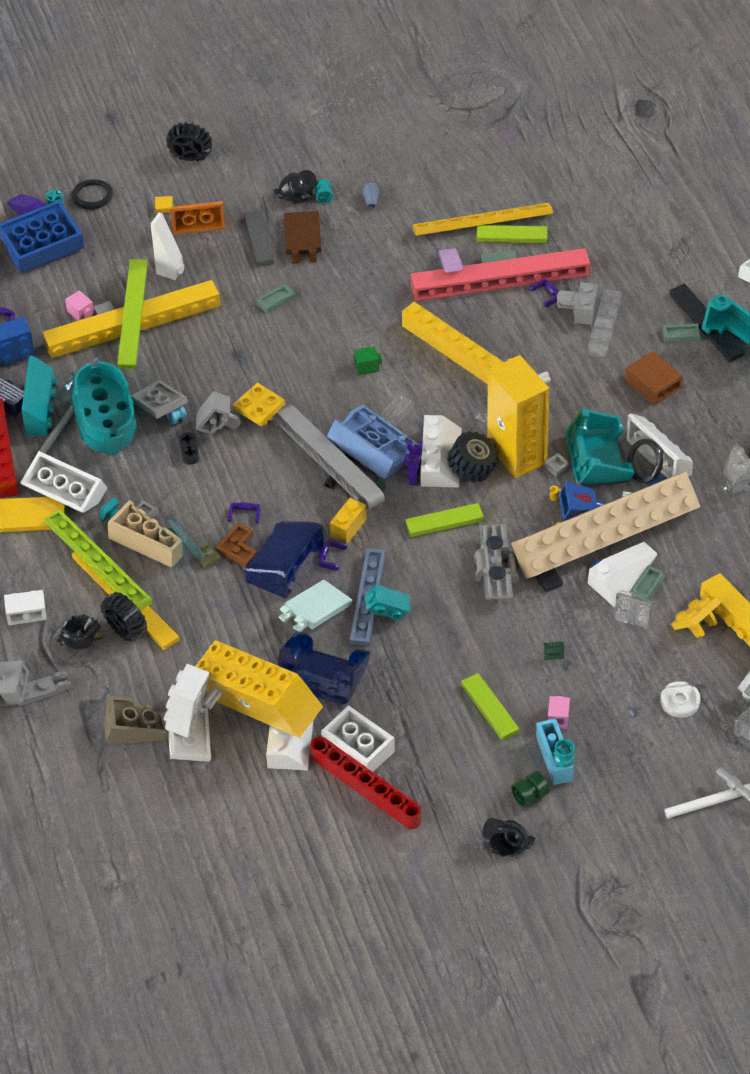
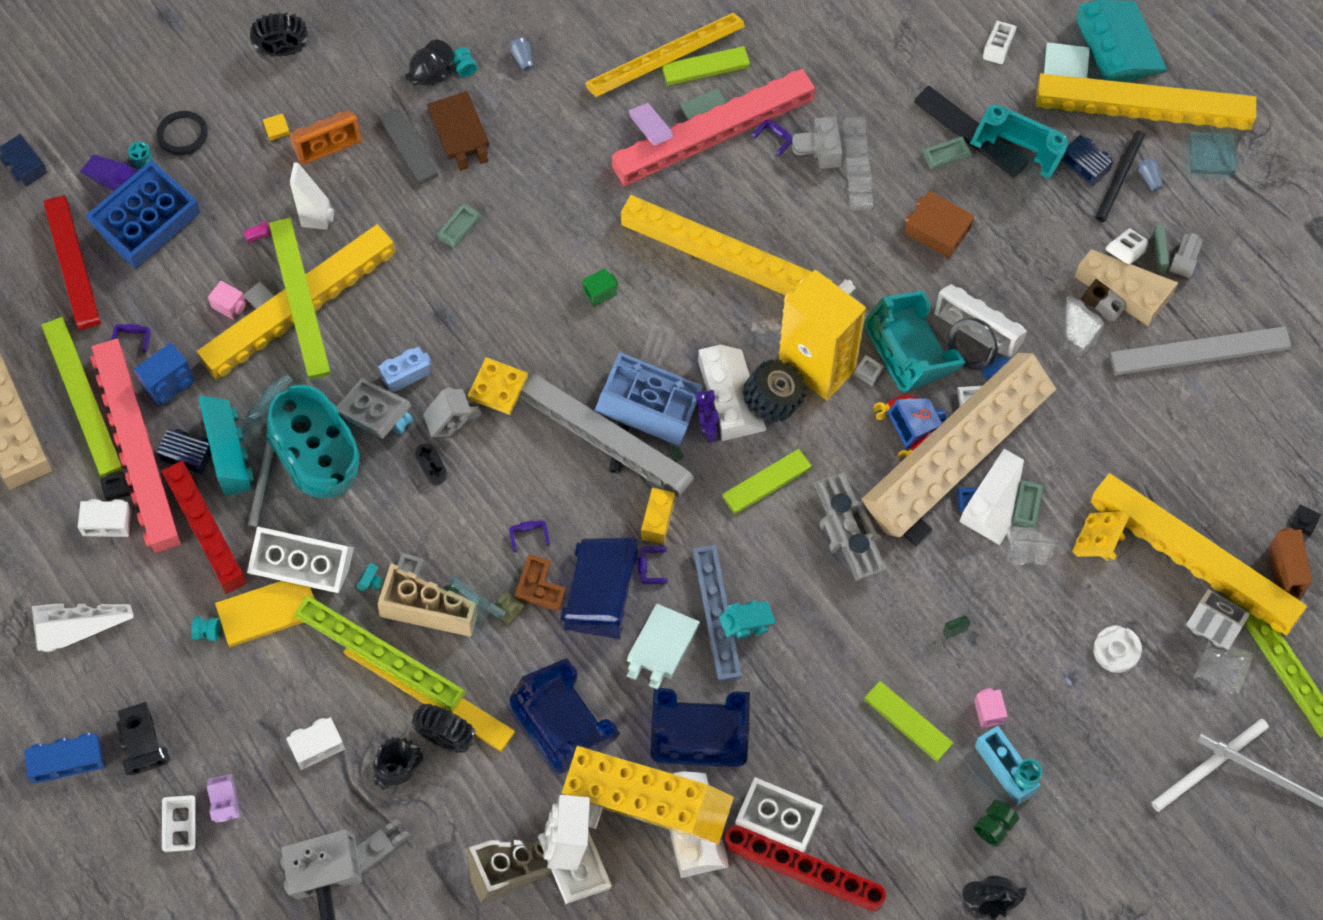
camera: 20 degrees left, 15 degrees up
(121, 268) = (257, 232): none -> dark pink pin
(194, 380) = (405, 369): none -> light blue brick
(214, 618) = (558, 715): none -> clear blue windscreen

